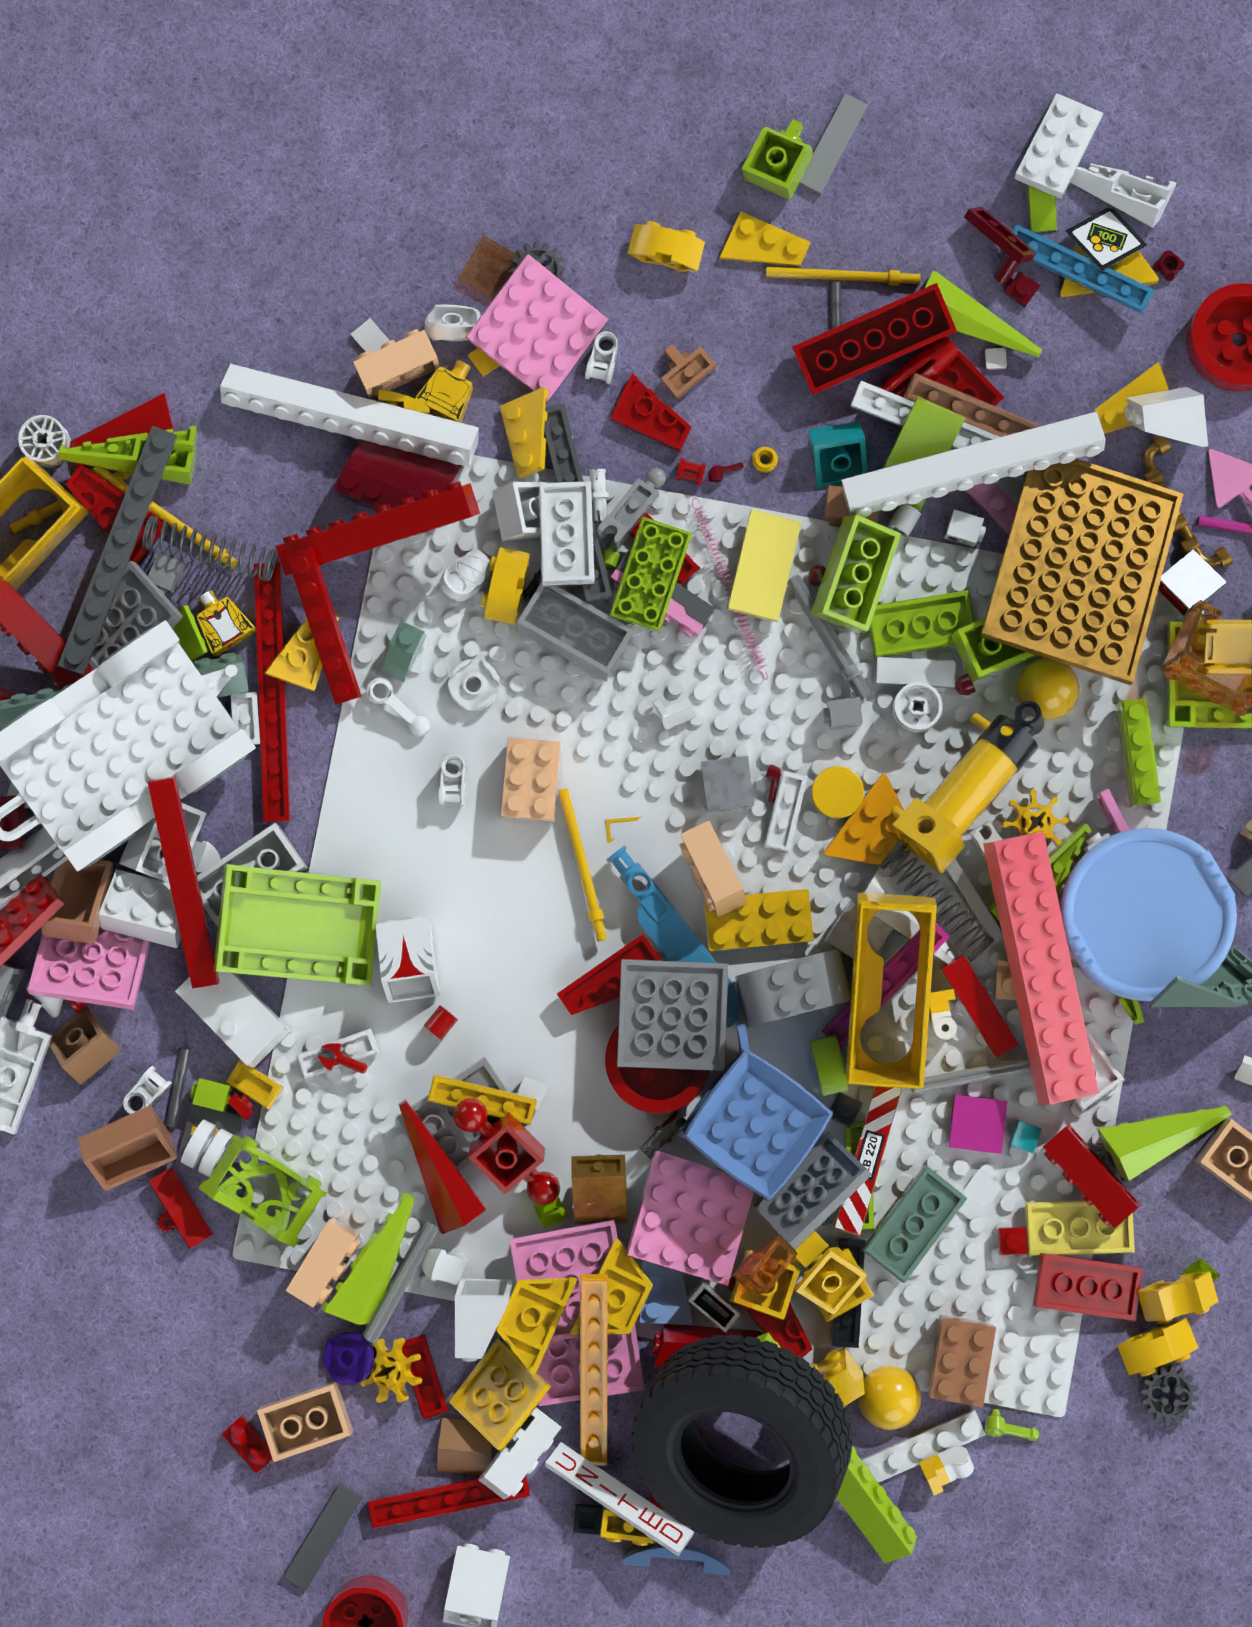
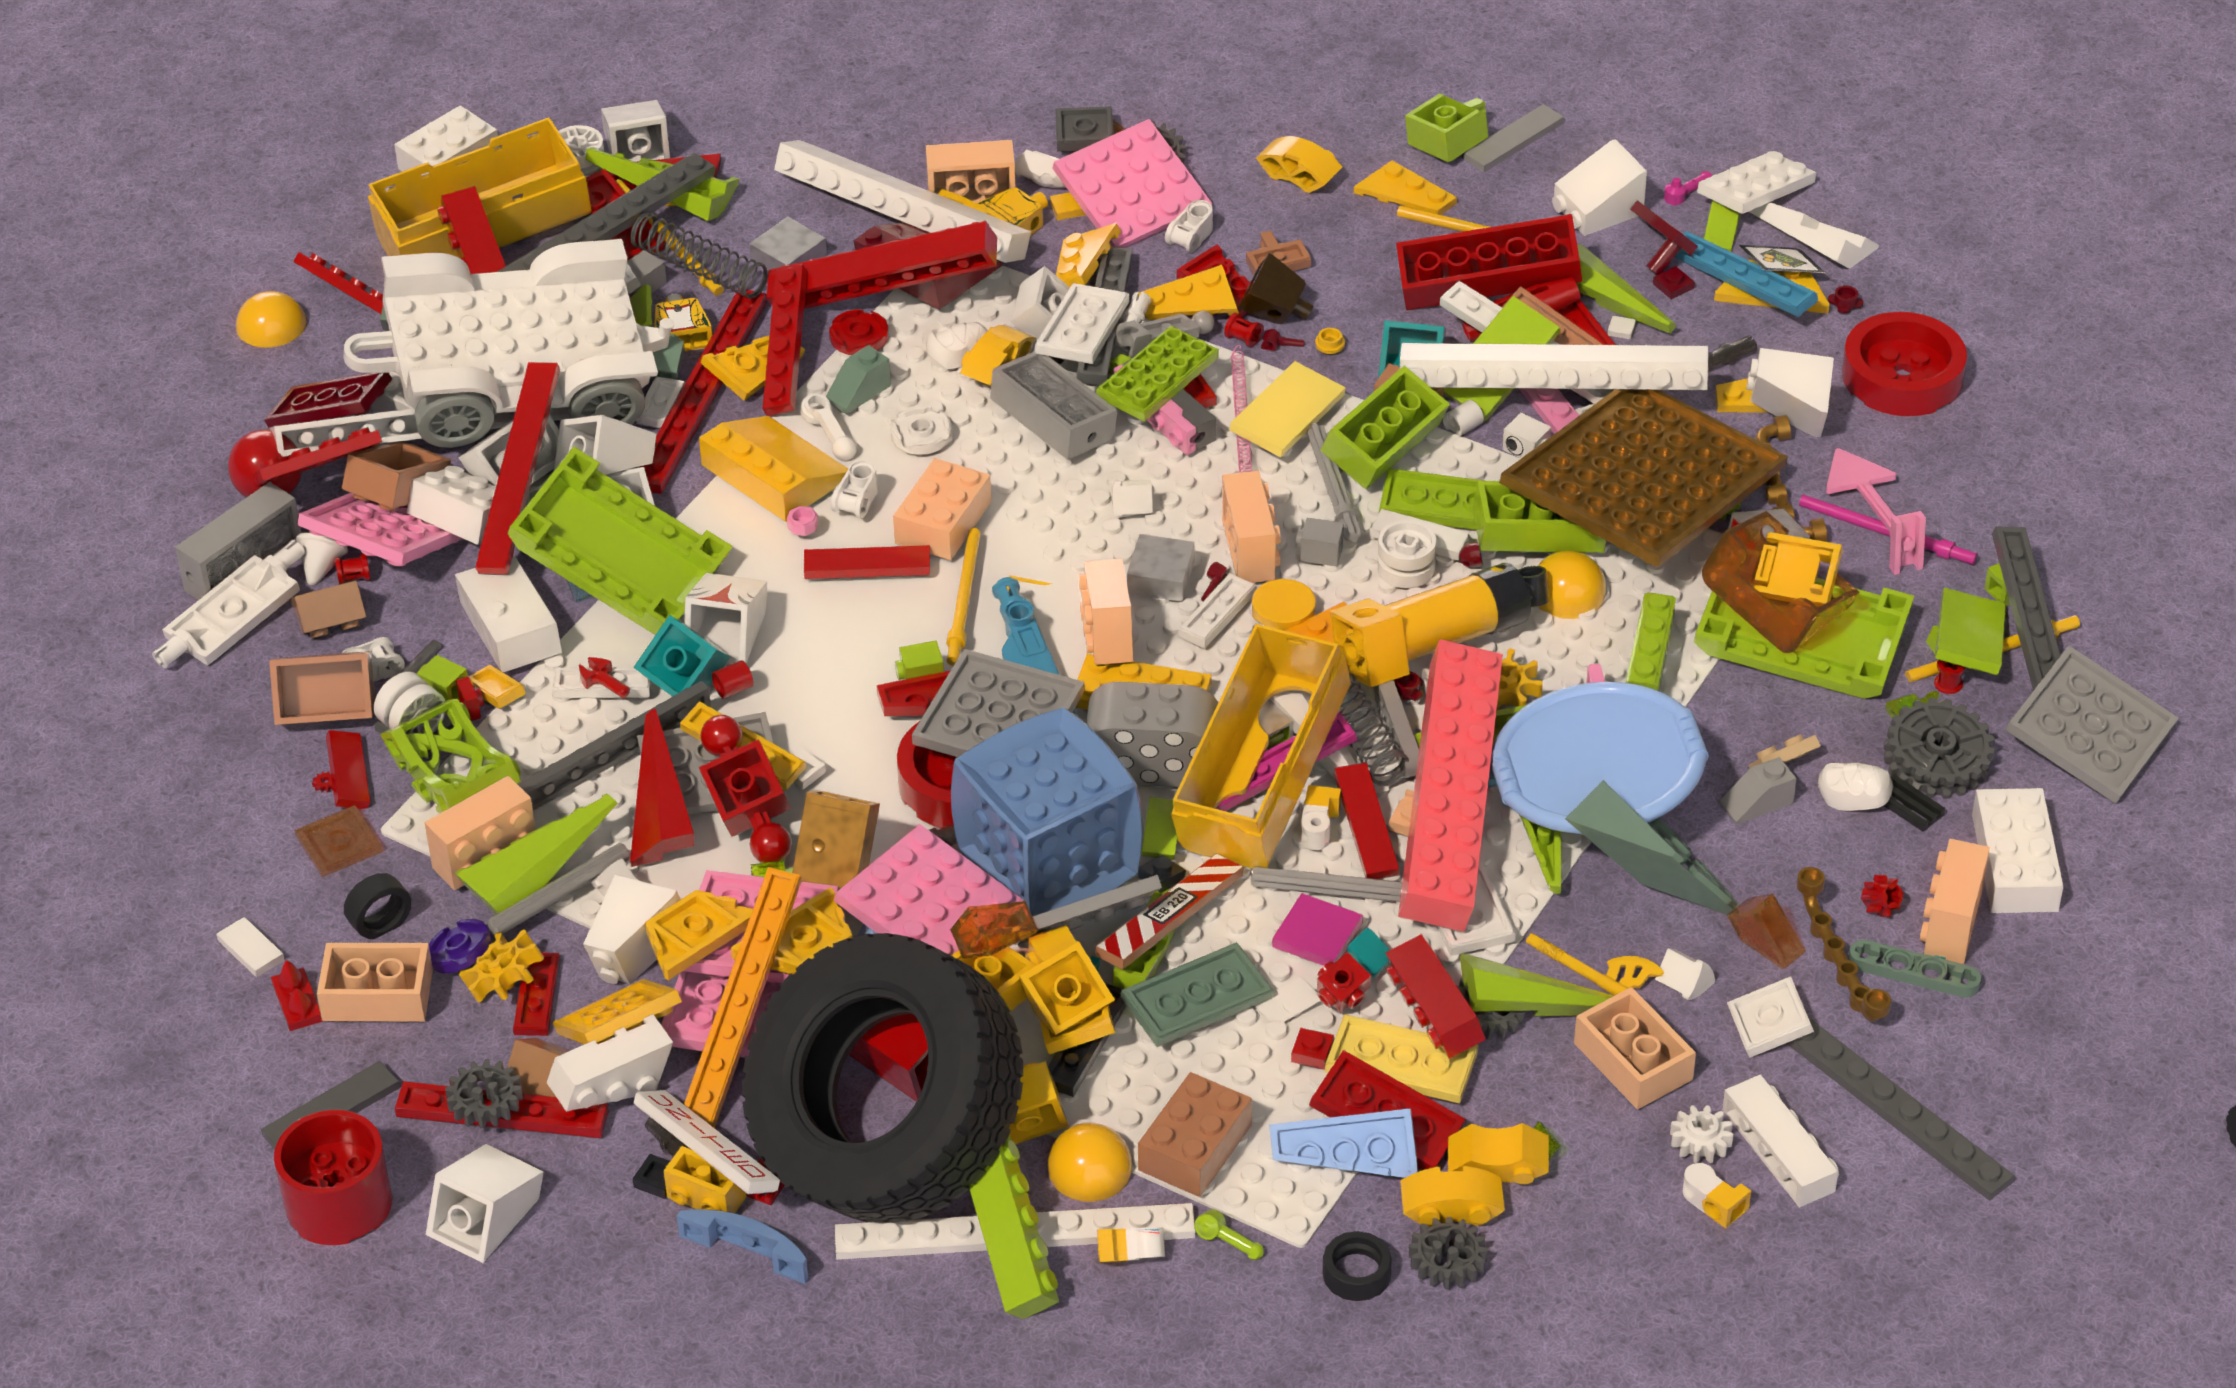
camera: 20 degrees right, 40 degrees down
(81, 395) = (636, 130): none -> white slope
(190, 1406) = (250, 947): none -> white tile
(206, 1279) = (338, 841): none -> clear orange tile
(233, 818) = (608, 441): none -> white slope
(273, 1349) = (368, 892): none -> black tyre
(274, 498) = (787, 245): none -> flat silver piece
(363, 1150) = (608, 749): none -> dark grey plate
(372, 766) = (769, 463): none -> yellow slope
(376, 584) = (856, 330): none -> red tile
(396, 1023) = (680, 658): none -> teal slope
(422, 826) = (802, 520): none -> bright pink tile
(452, 1505) = (501, 1089): none -> dark grey gear
(466, 260) = (1082, 126): none -> dark grey tile
(491, 852) = (866, 562): none -> red tile
(581, 959) = (919, 660): none -> lime brick
(636, 448) = (1191, 294): none -> yellow wing
(704, 425) = (1275, 293): none -> dark brown torso
(787, 727) = (1250, 526): none -> light nougat brick
(933, 204) = (1601, 189): none -> white slope
(968, 851) = (1409, 687): none -> dark red plate
(991, 172) = (1676, 192): none -> dark pink piece
(1019, 1182) = (1343, 983): none -> red brick
(1084, 1326) = (1361, 1142): none -> light blue wing
(1091, 366) = (1731, 352): none -> clear smoke pin
(1130, 1427) = (1352, 1287): none -> black tyre
(1200, 1092) = (1609, 981): none -> yellow piece

